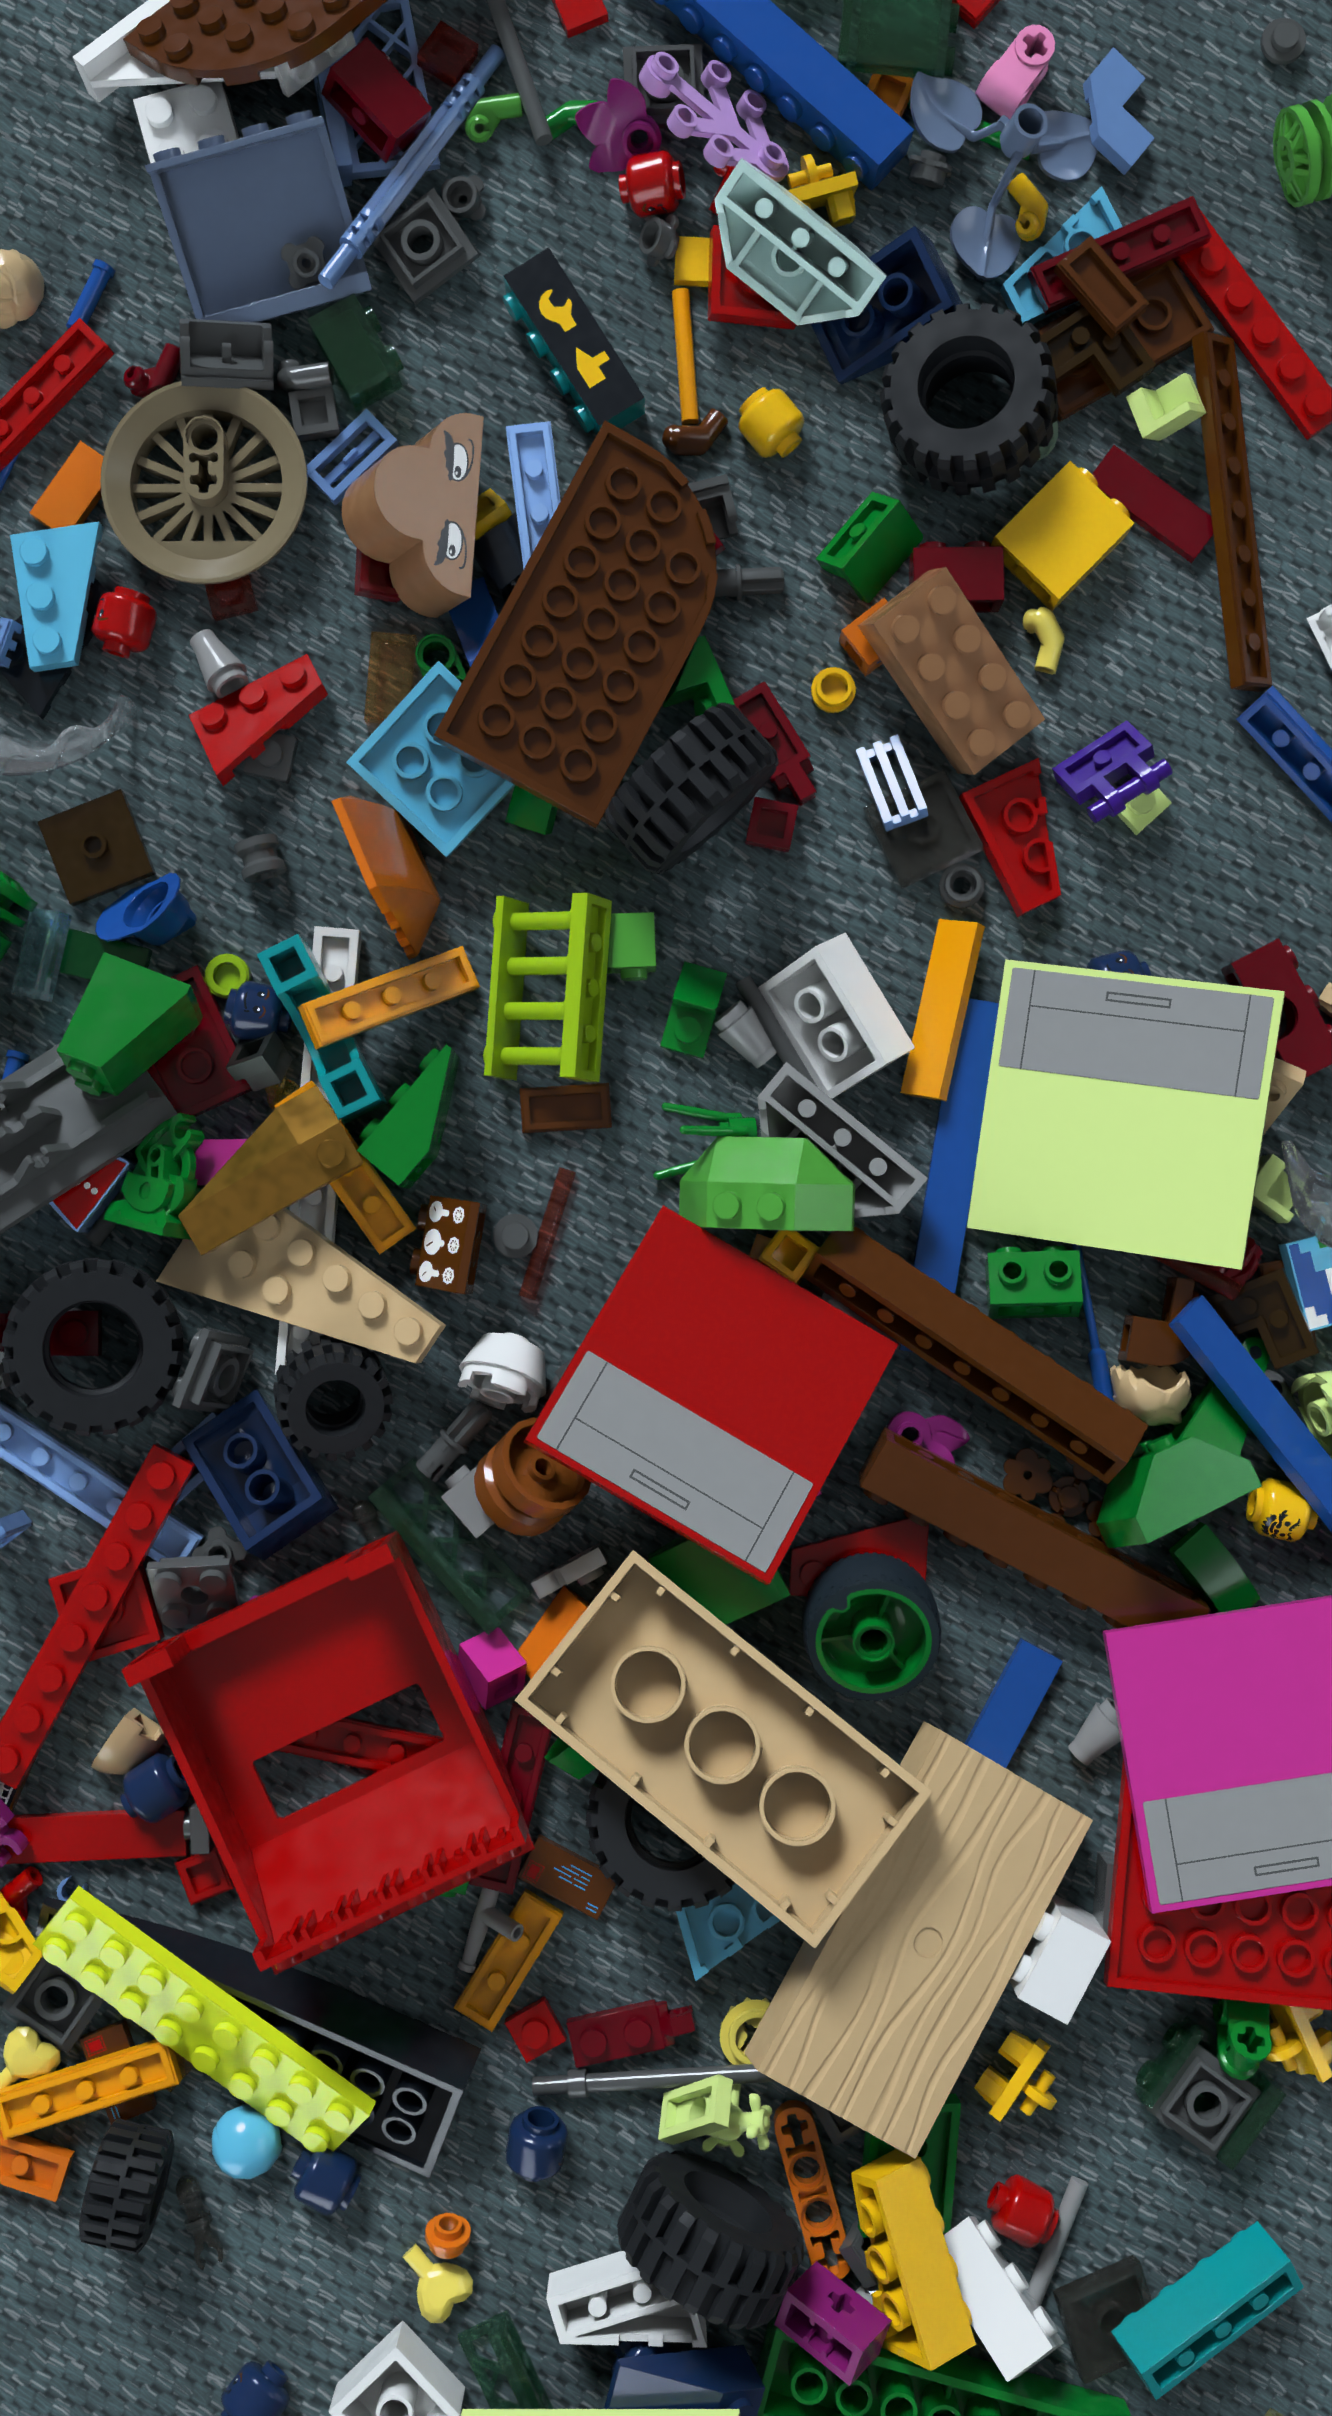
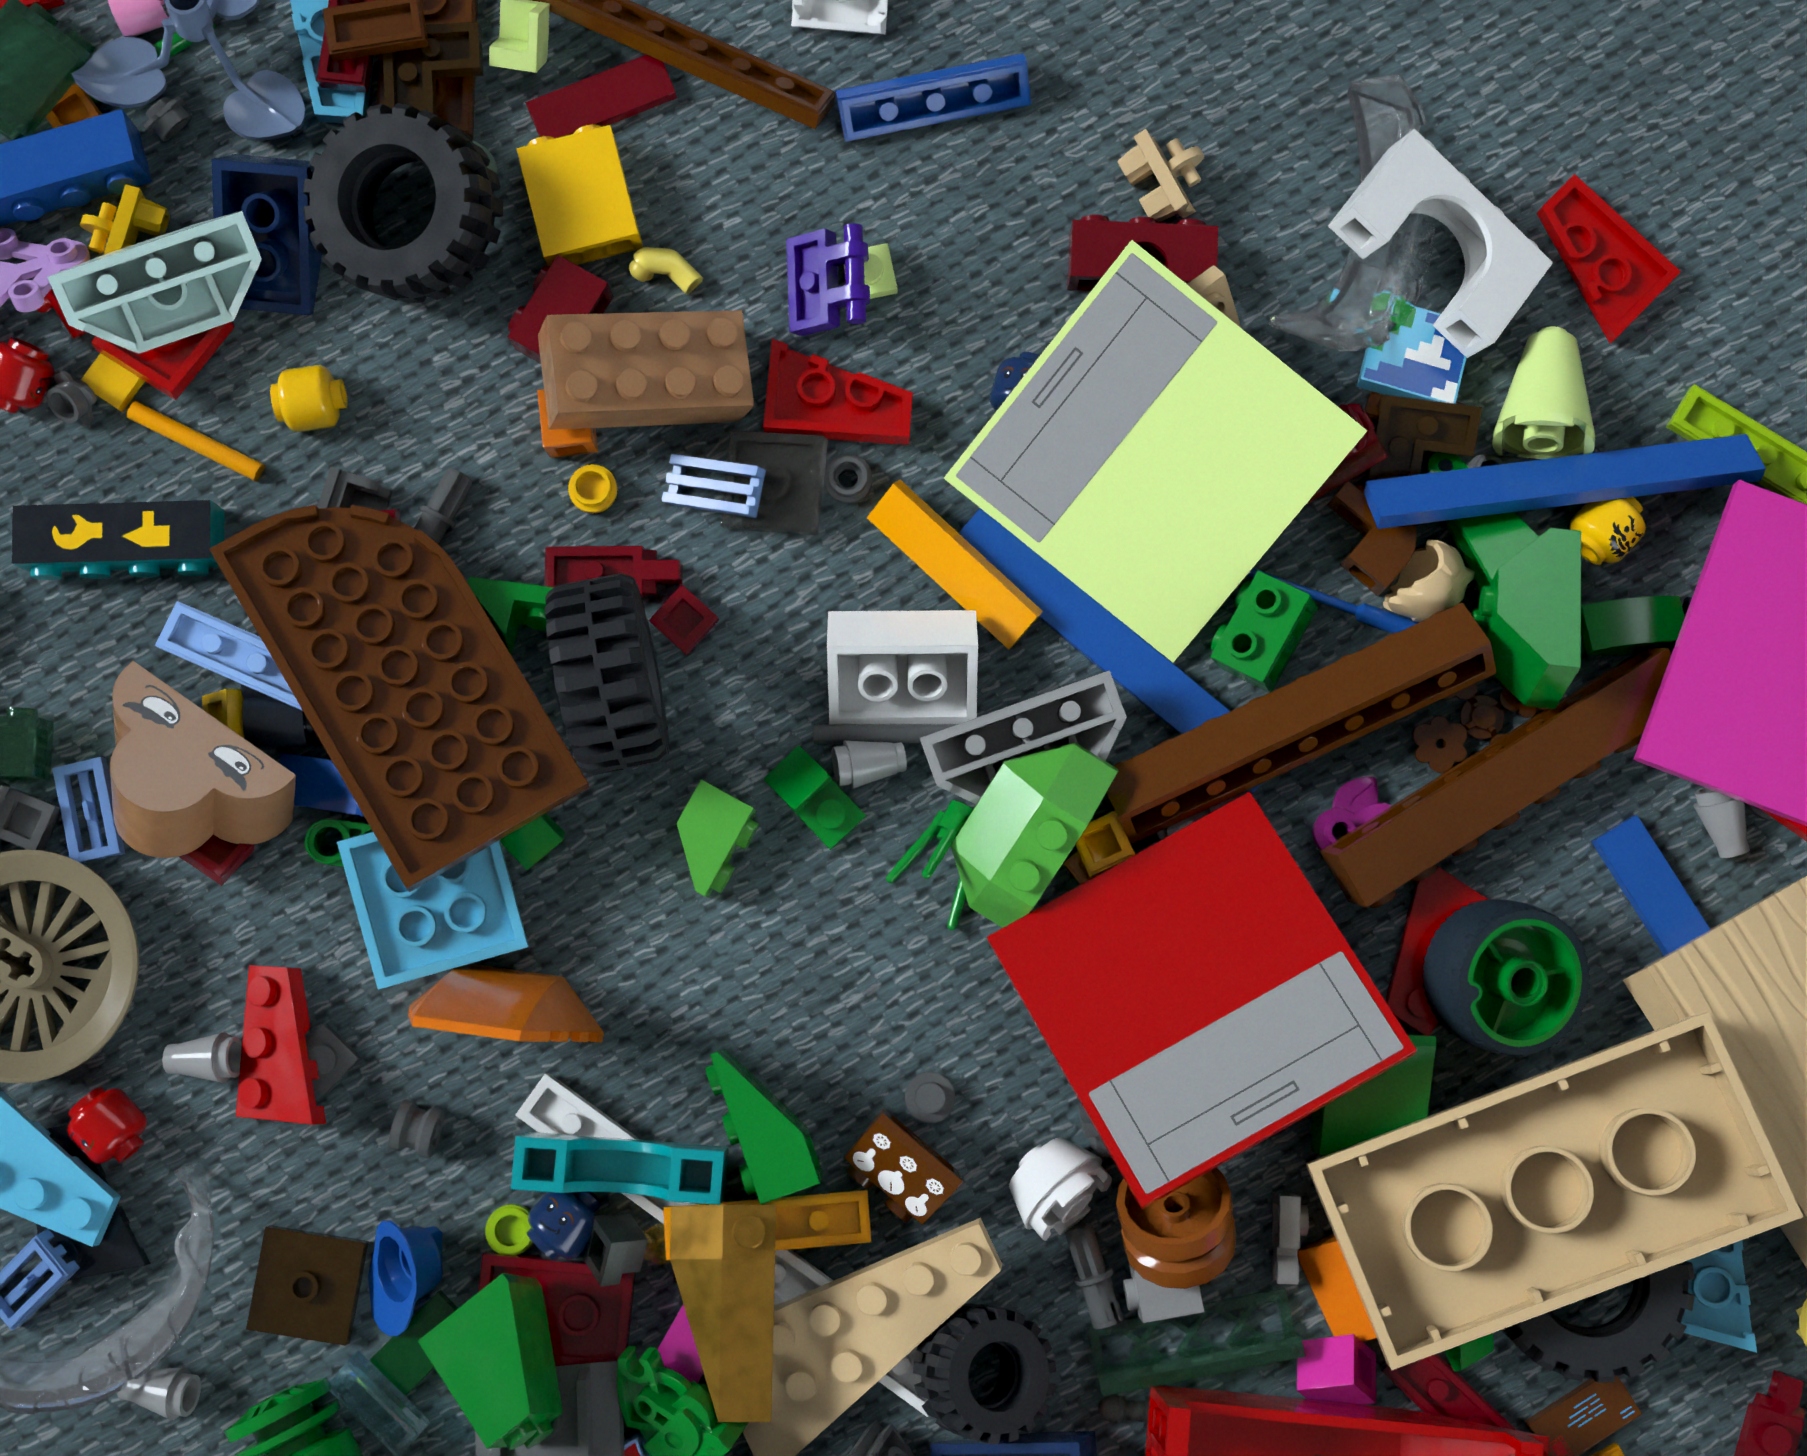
camera: 60 degrees left, 5 degrees down
(231, 598) = (150, 1006): clear red plate -> none
(388, 997) = (628, 1084): light orange tile -> none
(389, 673) = (318, 897): clear orange tile -> none
(547, 1233) = (945, 1065): clear red bar -> none
(565, 1108) = (835, 975): reddish brown tile -> none
(584, 993) = (736, 888): lime fence -> none
(694, 440) = (278, 478): reddish brown arm -> none
(871, 545) = (479, 374): green panel -> none
(1033, 208) = (263, 48): yellow arm -> none
(1273, 1190) = (1305, 358): yellowish green panel -> none

